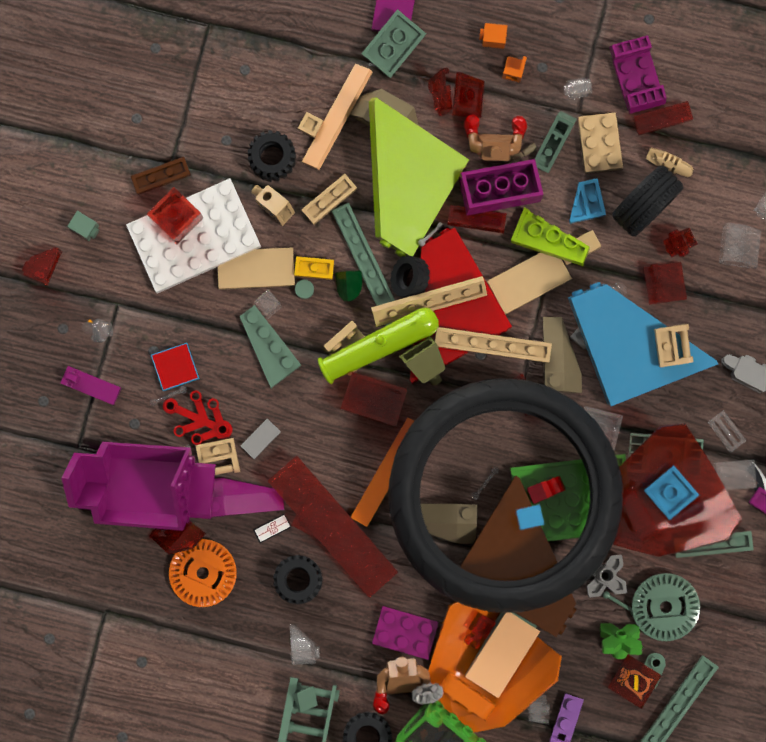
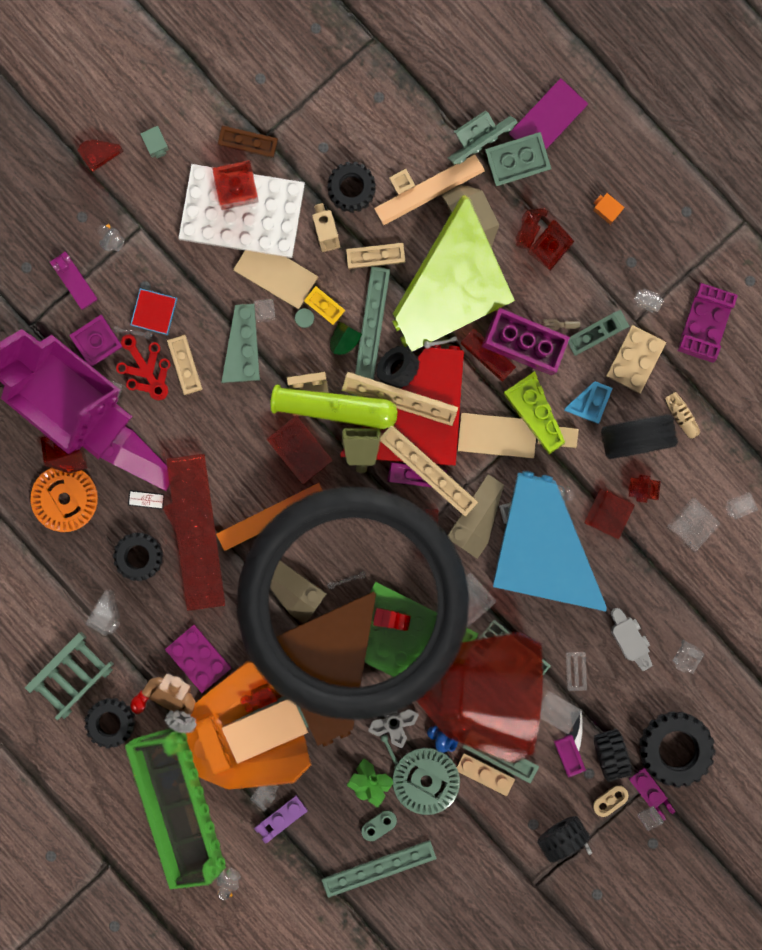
camera: 30 degrees right, 5 degrees up
(142, 422) = (96, 341): none -> magenta plate
(219, 451) = (143, 406): tan plate -> none
(230, 394) = (184, 365): none -> tan tile
(260, 438) = (185, 419): light grey tile -> none
(305, 699) = (79, 658): sand green slope -> none
(346, 46) = (478, 133): none -> sand green bracket
(475, 362) = (405, 475): none -> magenta hinge
(495, 146) = (545, 304): medium nougat torso -> none
(514, 69) = (606, 247): orange panel -> none
(530, 517) = (357, 636): dark azure panel -> none
(634, 681) = (359, 824): clear red tile -> none
(658, 564) = (442, 743): none -> blue animal
(663, 118) = (703, 373): clear red plate -> none
(667, 345) = (572, 569): tan plate -> none
(671, 492) = (492, 692): dark azure tile -> none
(710, 568) = (485, 774): none -> tan plate

